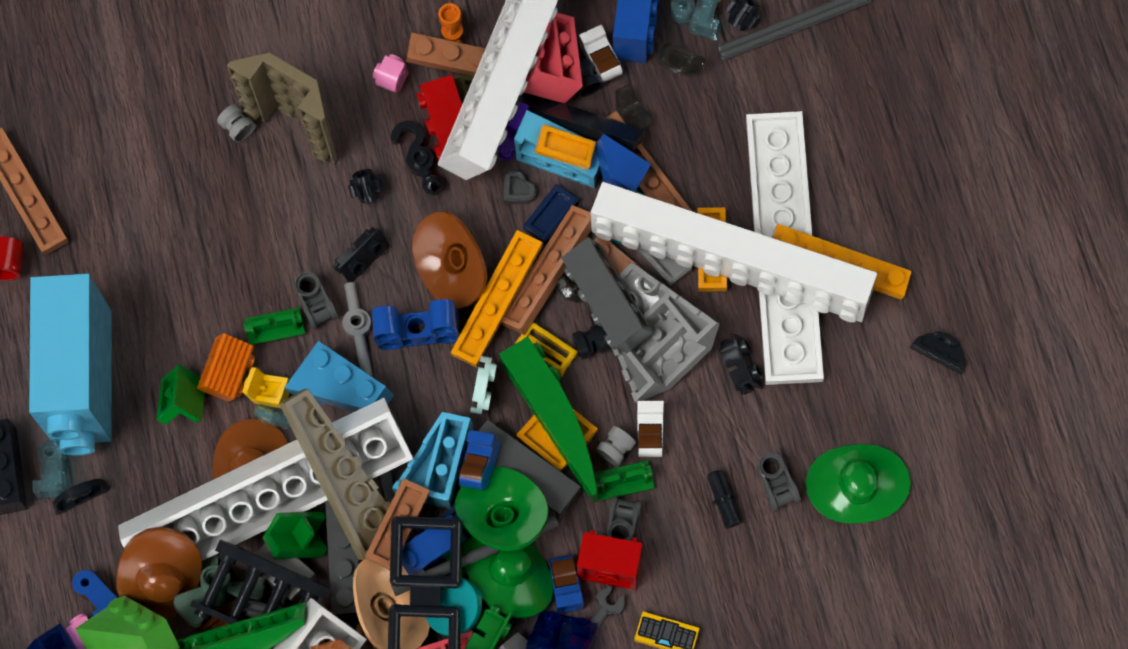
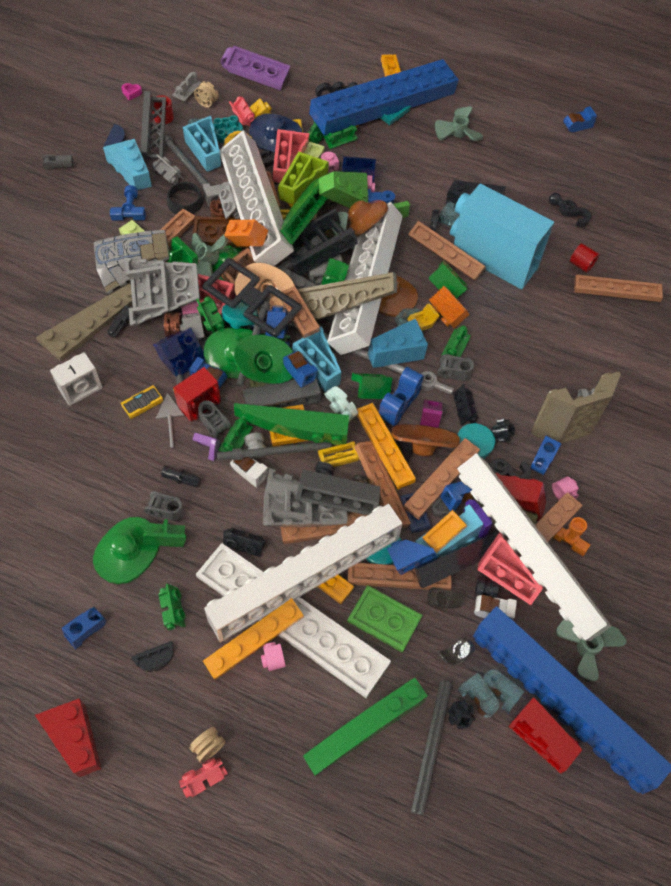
camera: 120 degrees right, 10 degrees down
(94, 552) = (403, 208): none -> bright green tile
(124, 441) = (447, 251): none -> nougat plate
(363, 121) = (545, 455): none -> blue leg
(401, 283) = (431, 413): none -> magenta slope
(402, 208) = (479, 436): none -> teal tile
(421, 374) = (372, 385): none -> green panel
(491, 207) = (442, 476): none -> nougat plate
(500, 179) = (456, 494): none -> blue leg
(648, 594) = (169, 410): none -> light grey piece
(649, 440) = (238, 454): none -> dark grey bar
(657, 503) = (213, 443): none -> medium lavender tile
(702, 158) = (384, 618): none -> bright green tile
(810, 451) = (164, 534): none -> green panel
(827, 91) = (365, 726): none -> green slope
(840, 229) = (273, 656): none -> bright pink plate
(869, 382) = (170, 598): none -> green hinge
(976, 443) = (83, 626): none -> blue leg
(977, 220) = (207, 744): none -> tan wheel
(1016, 210) = (194, 779): none -> coral hinge
(1084, 355) = (72, 735): none -> red wedge

